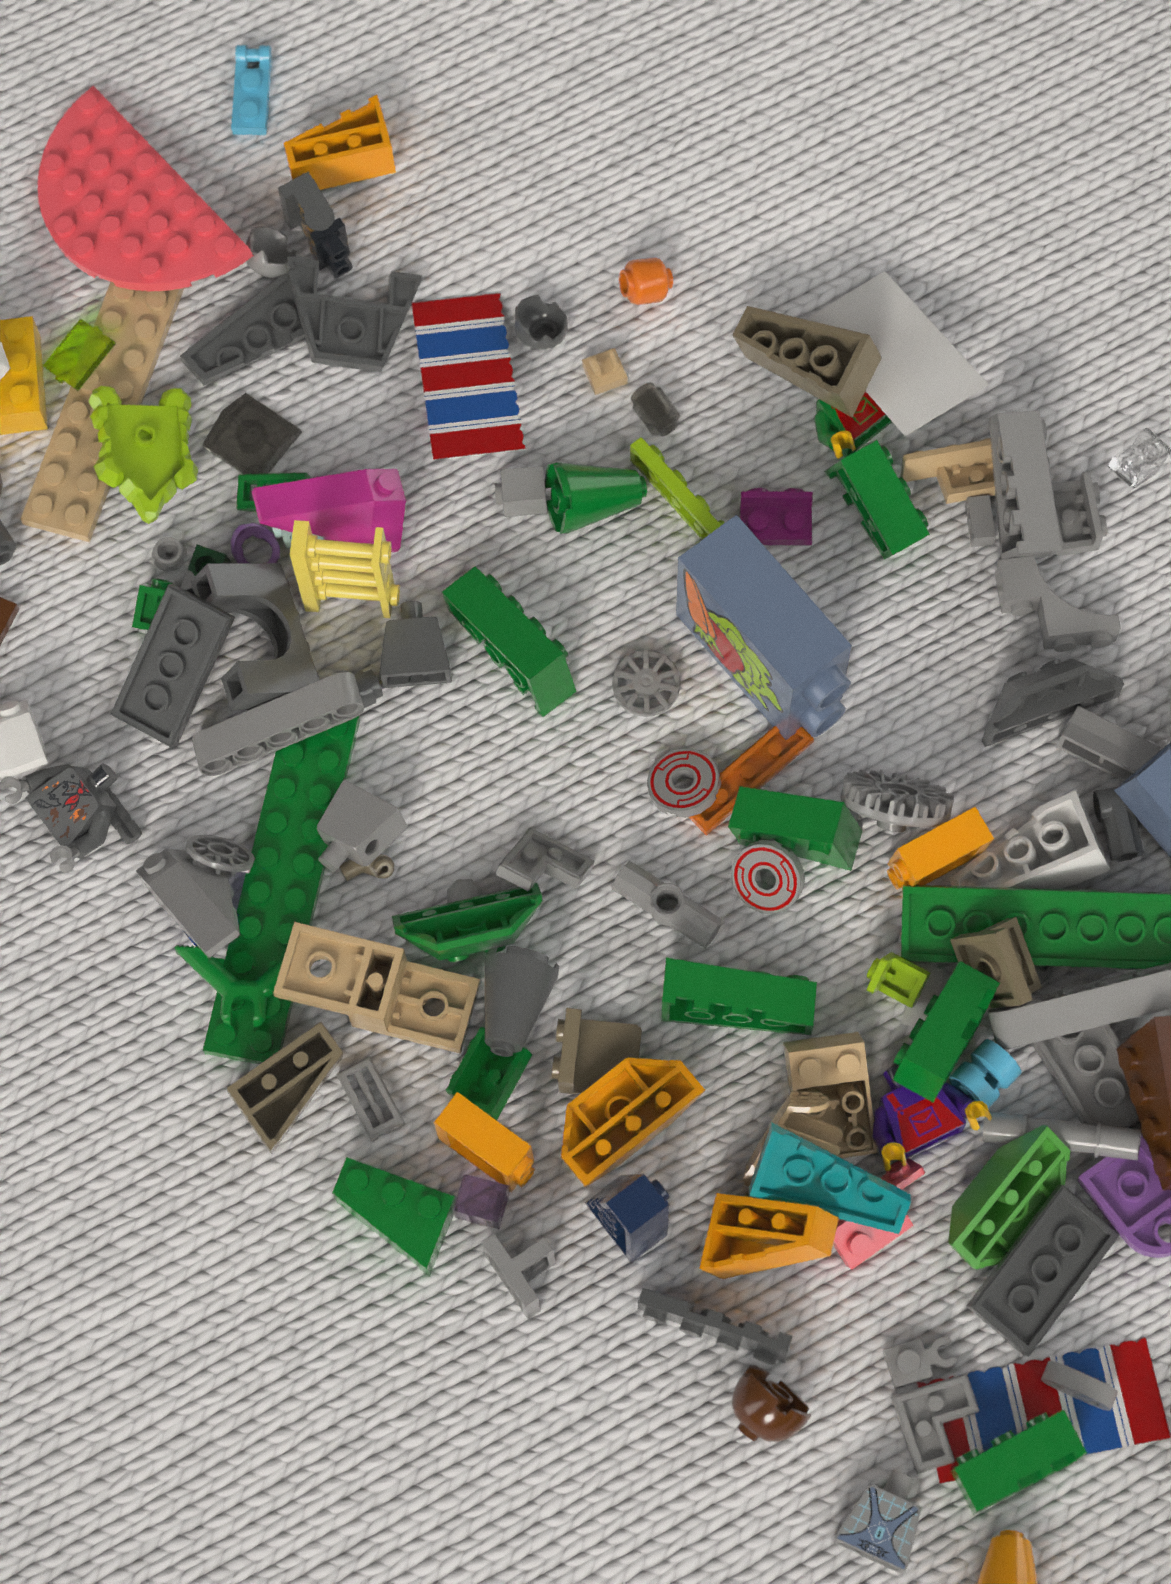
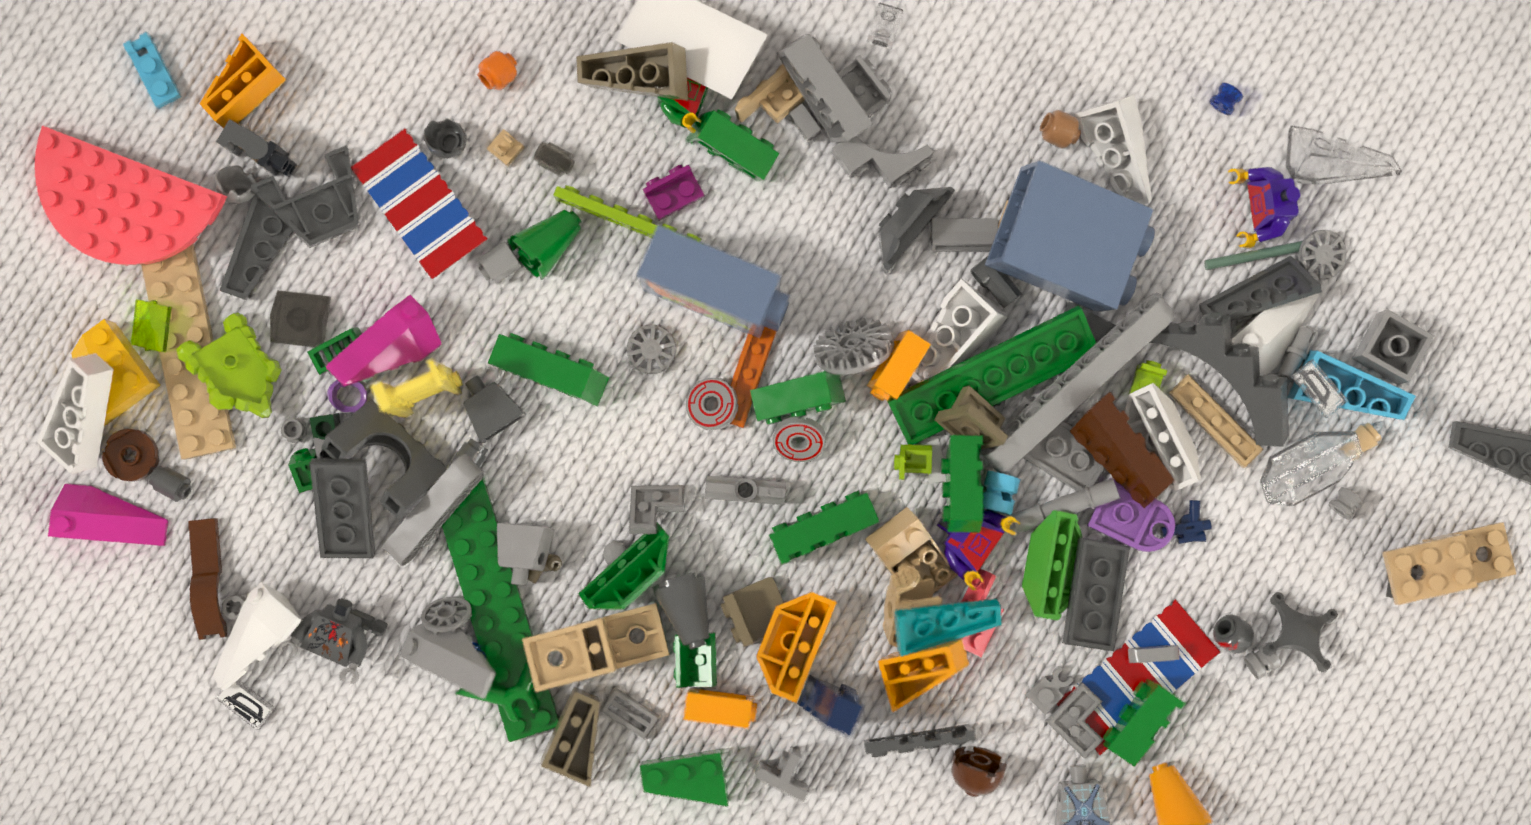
camera: 30 degrees left, 15 degrees up
(481, 1201) = (736, 743): clear purple panel -> none

